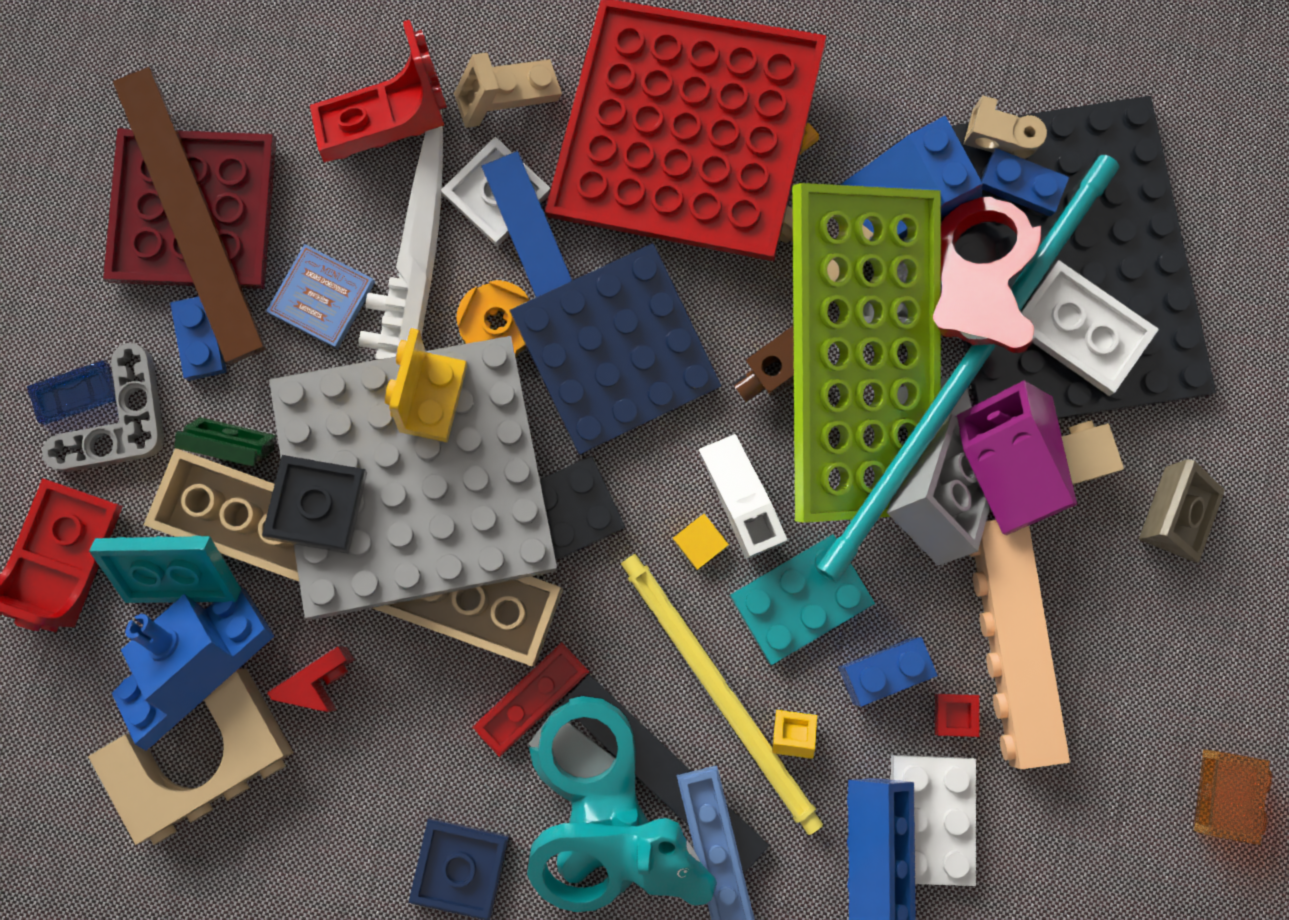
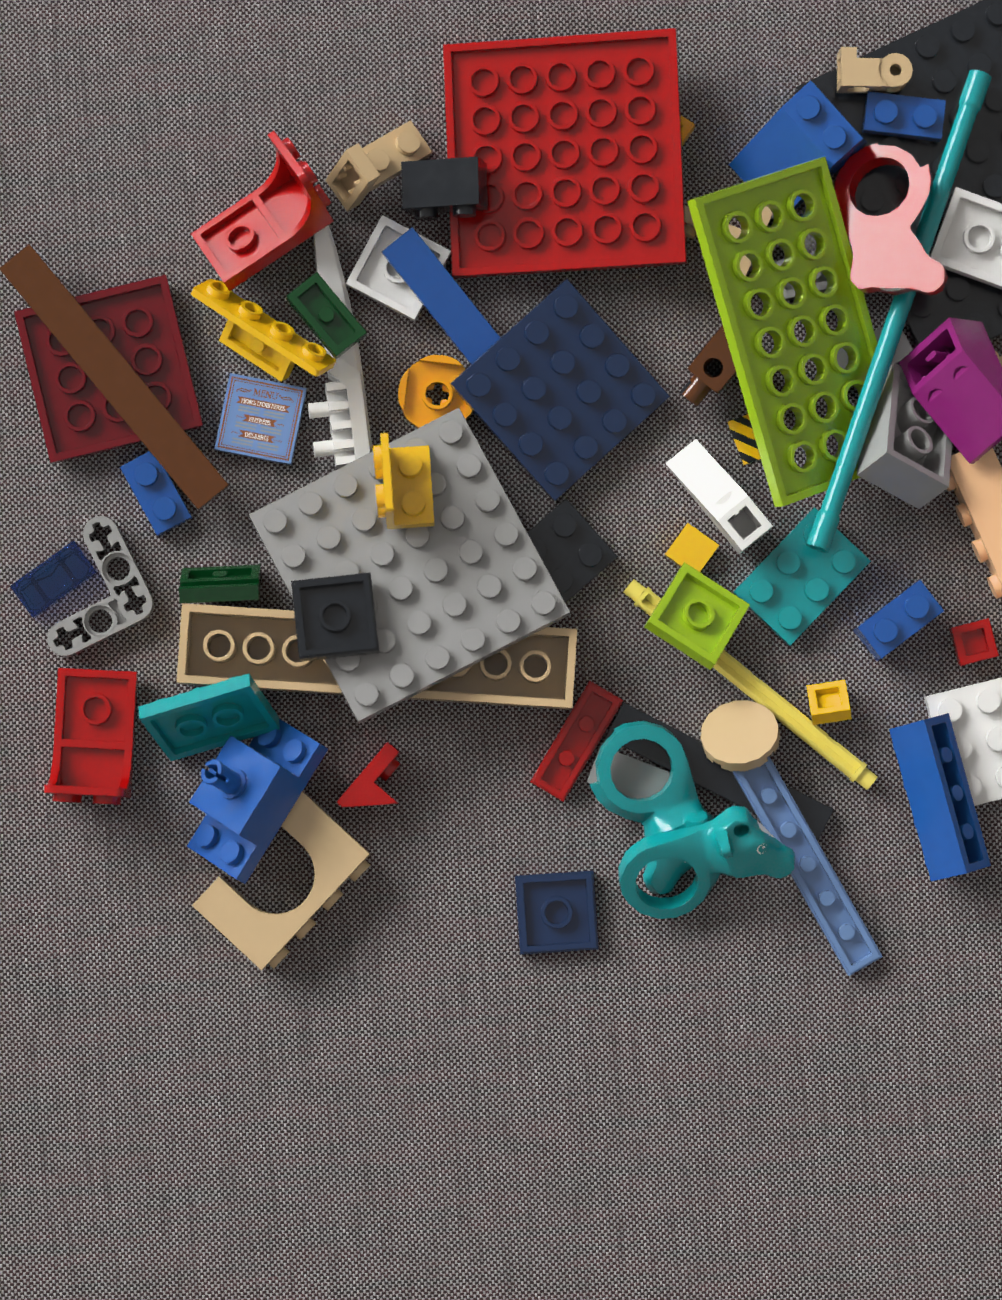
camera: 15 degrees left, 5 degrees up
(340, 215) = (259, 337): none -> yellow bracket
(408, 210) = (326, 315): none -> dark green plate
(561, 123) = (444, 187): none -> black brick
(686, 609) = (697, 616): none -> lime plate
(695, 743) = (740, 735): none -> tan tile
(783, 448) = (744, 439): none -> sticker

